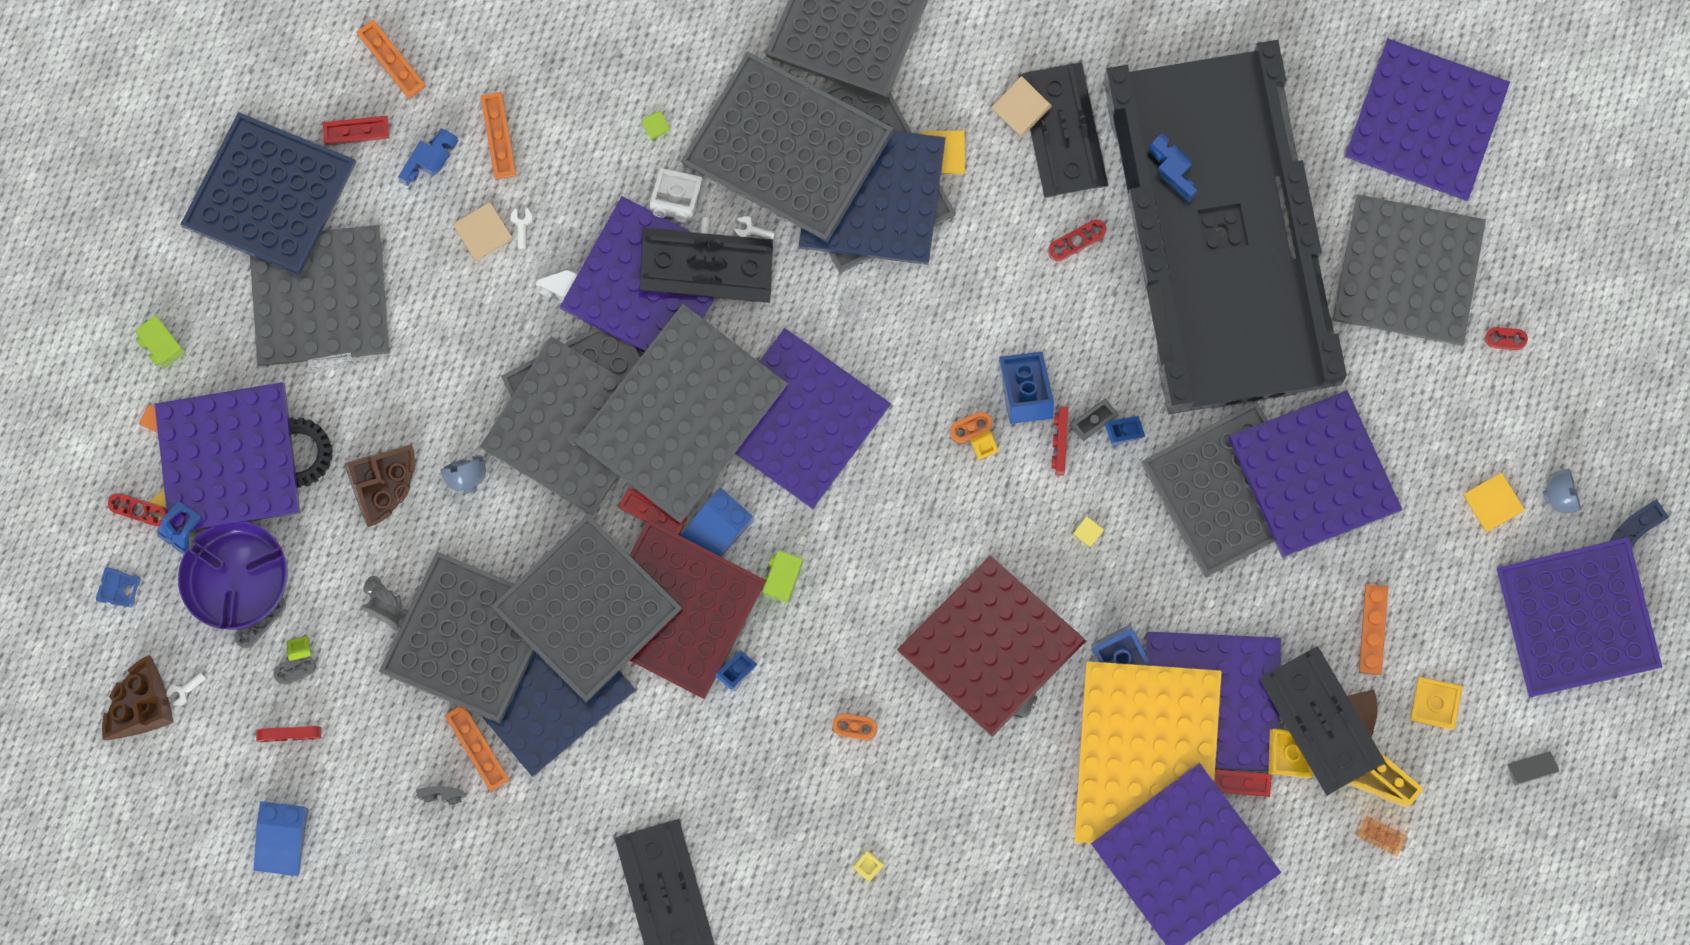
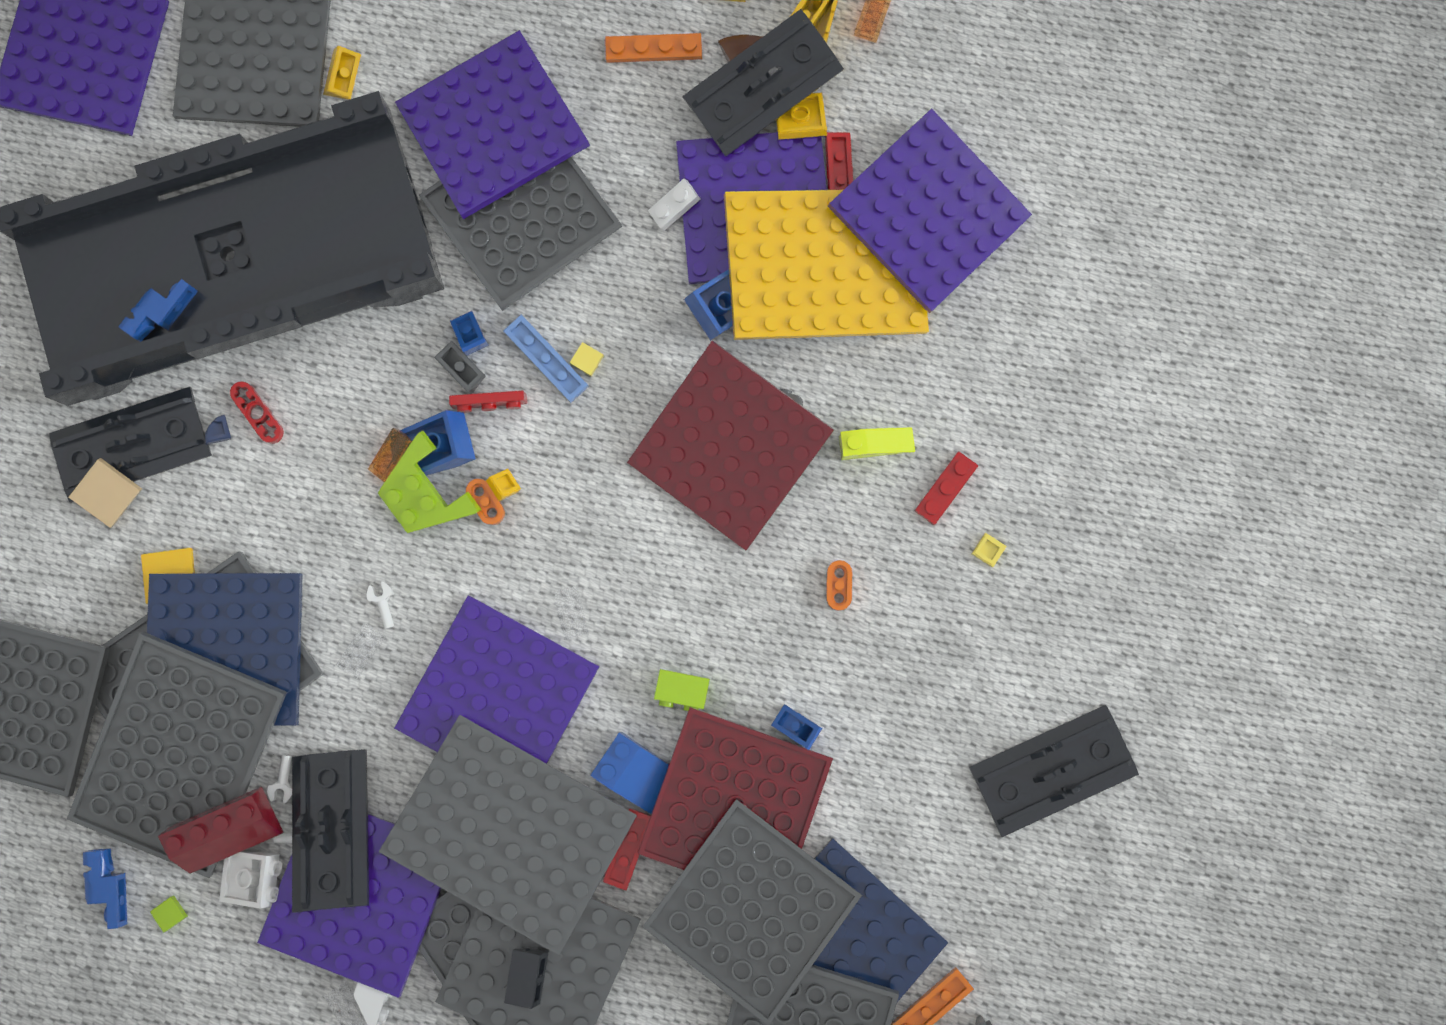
camera: 95 degrees left, 5 degrees up
(560, 413) = (526, 977): none -> black hinge
(685, 76) = (105, 887): none -> blue plate
(718, 176) = (221, 831): none -> dark red slope
(884, 331) = (382, 602): none -> white bar
(929, 836) = (946, 488): none -> red plate
(978, 778) = (875, 442): none -> neon yellow slope
(983, 366) = (414, 497): none -> lime wing
(1023, 351) = (389, 454): none -> clear orange tile
(1064, 205) = (217, 431): none -> dark blue tile
(1093, 496) = (546, 358): none -> medium blue plate
(1220, 627) = (674, 204): none -> white plate
(1381, 346) = (342, 73): none -> yellow slope

